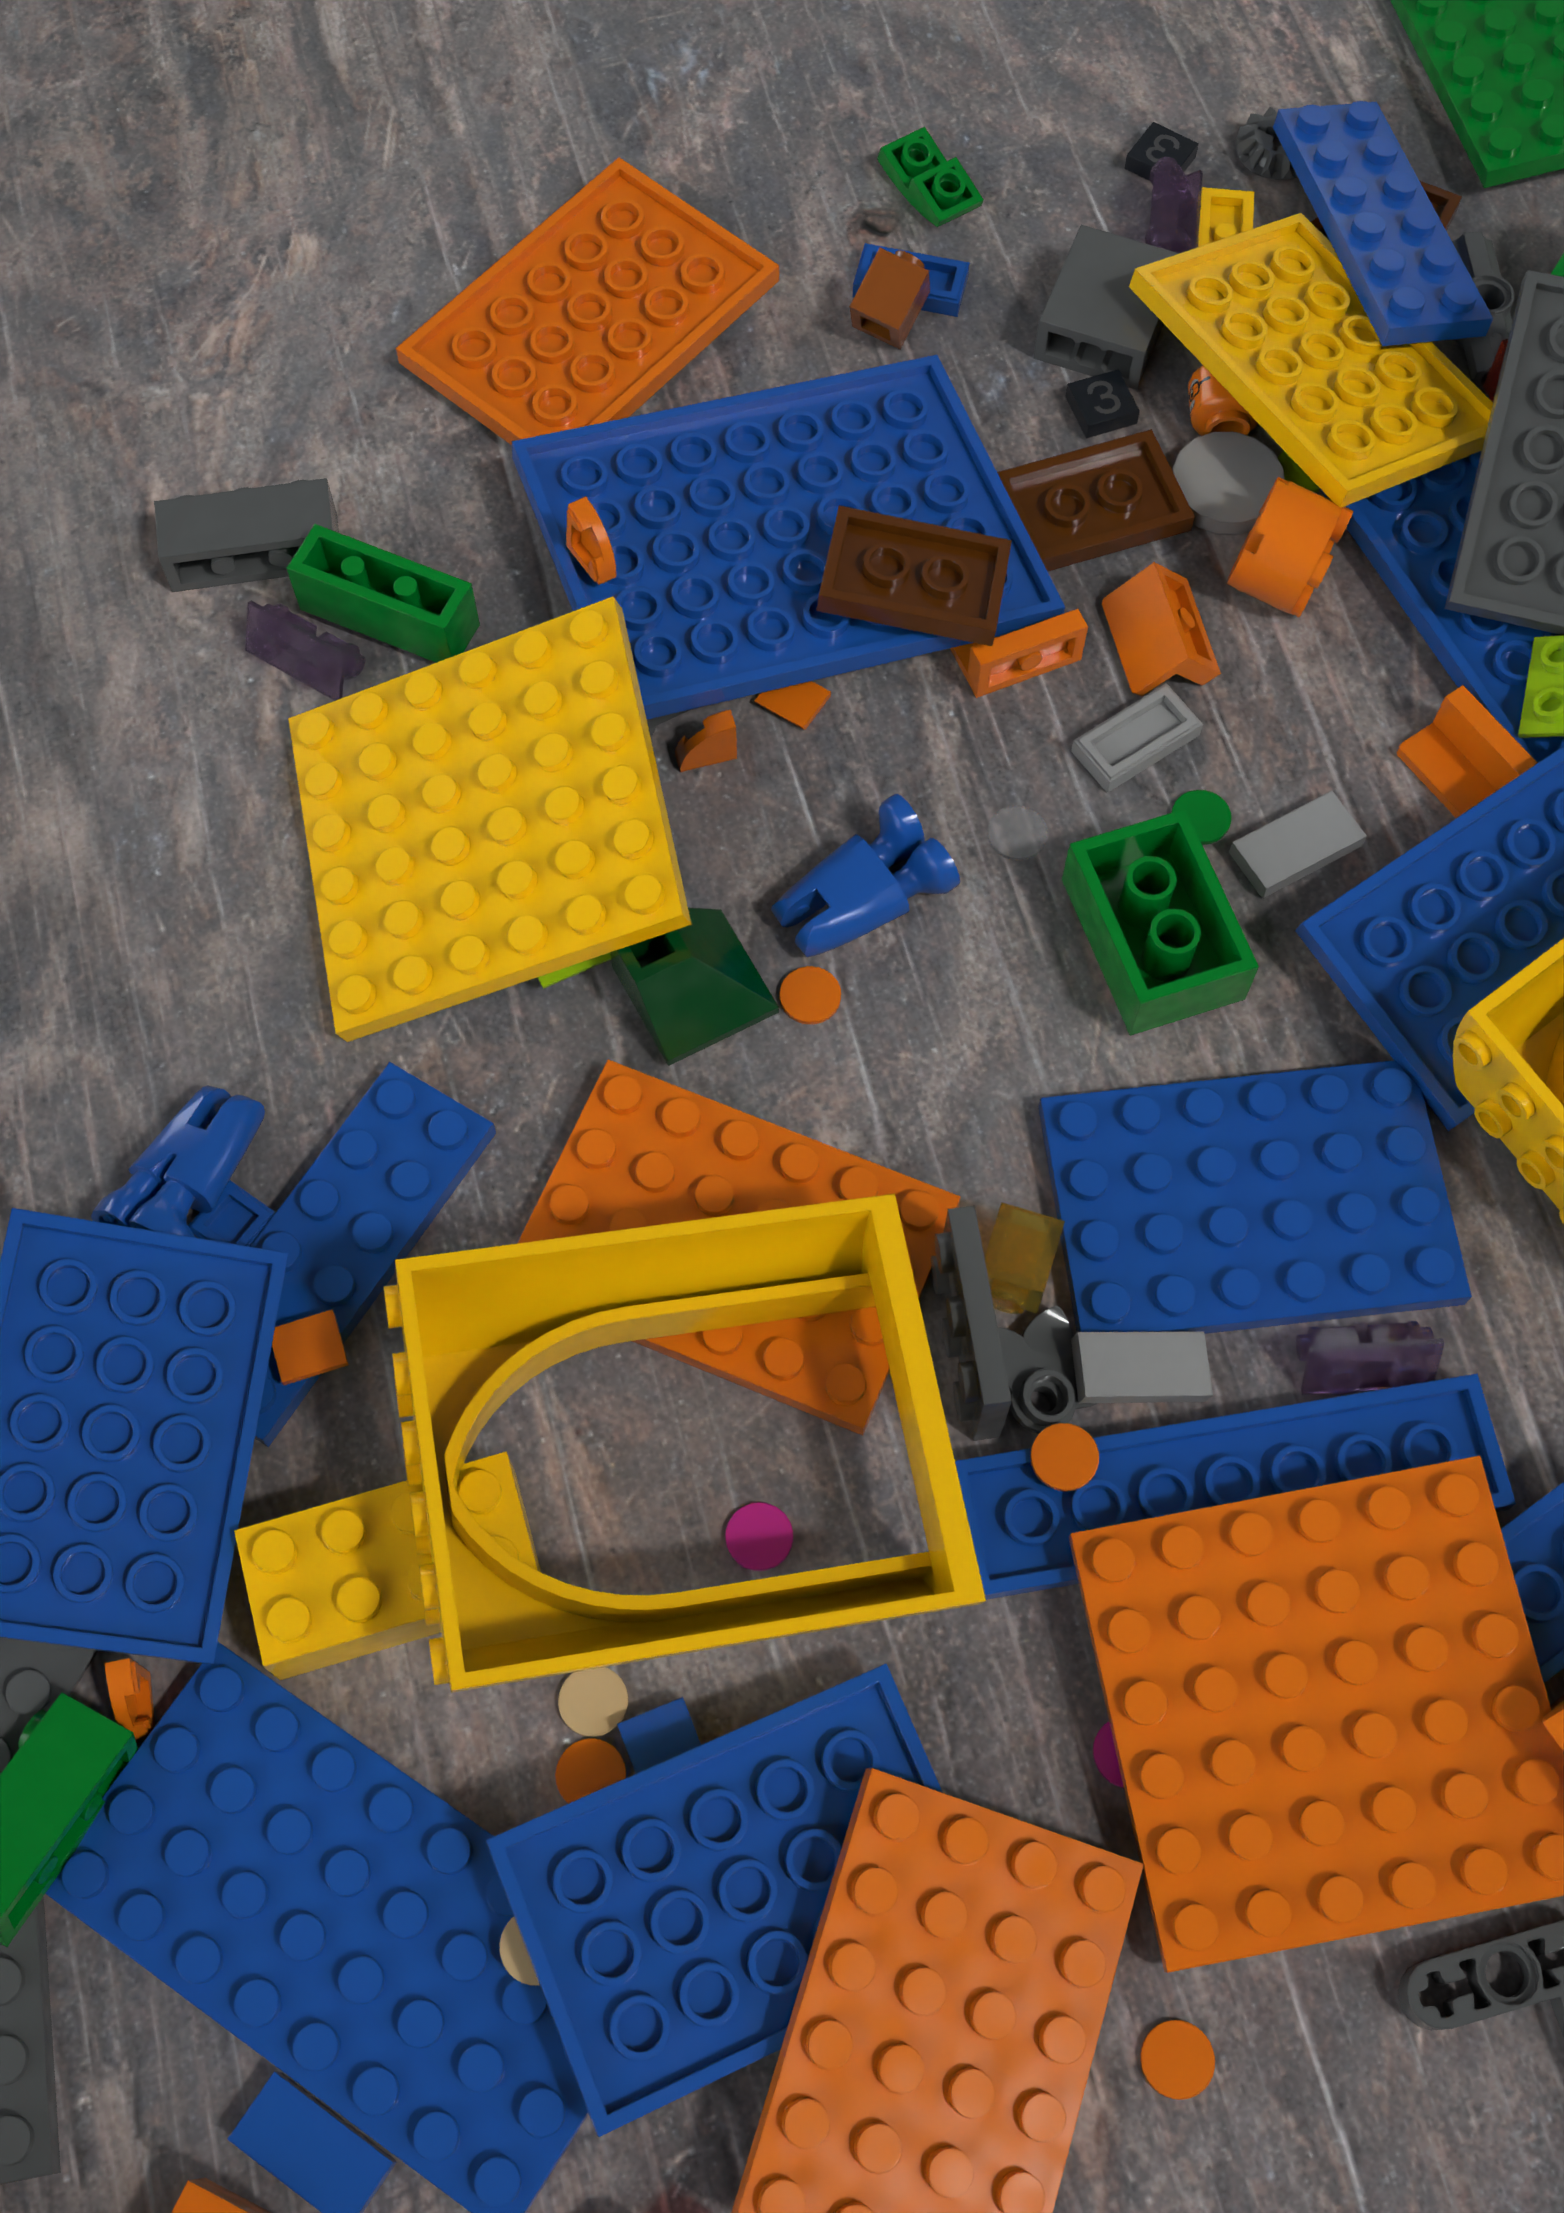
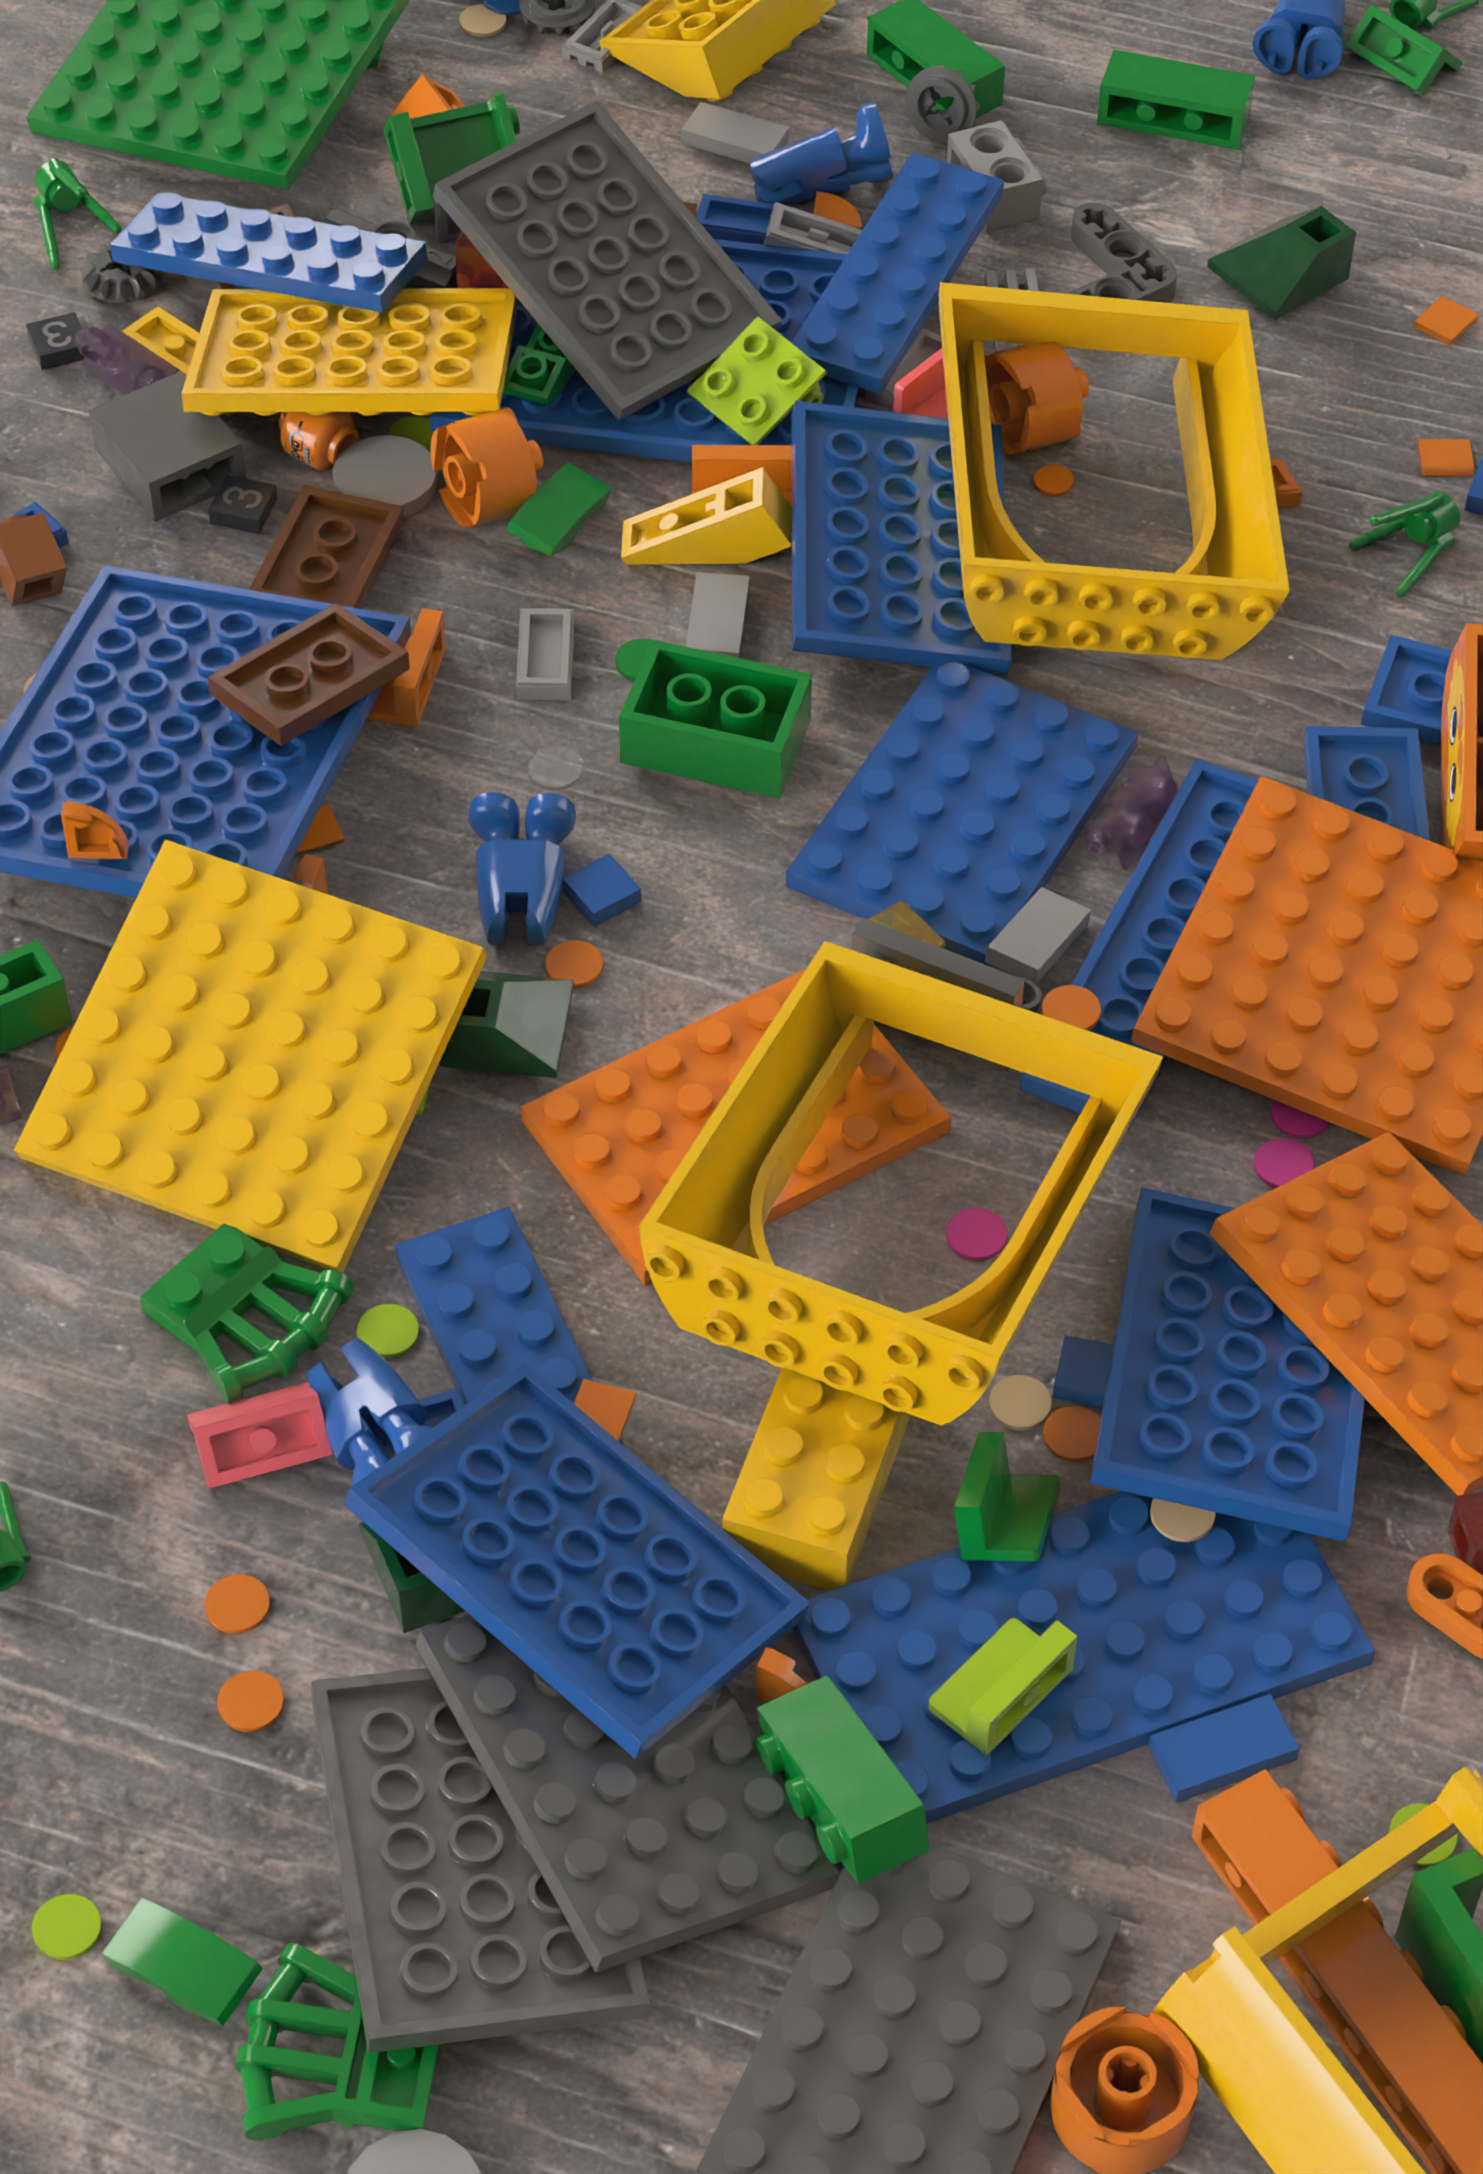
camera: 55 degrees left, 15 degrees down
(124, 1085) = (260, 1434): none -> coral panel
(226, 1896) = (1004, 1682): none -> lime panel
(249, 957) = (220, 1284): none -> green plate
(311, 1116) = (389, 1329): none -> lime piece
(430, 1770) = (1002, 1512): none -> green panel
(904, 961) = (601, 889): none -> blue tile
(1053, 1774) = (1282, 1161): none -> dark pink piece
(1159, 630) = (472, 588): orange panel -> none
(1304, 632) = (557, 509): none -> green slope
(1321, 43) = (63, 192): none -> green plant
(1395, 767) = (714, 526): none -> yellow slope
(1433, 507) = (538, 370): none -> green slope

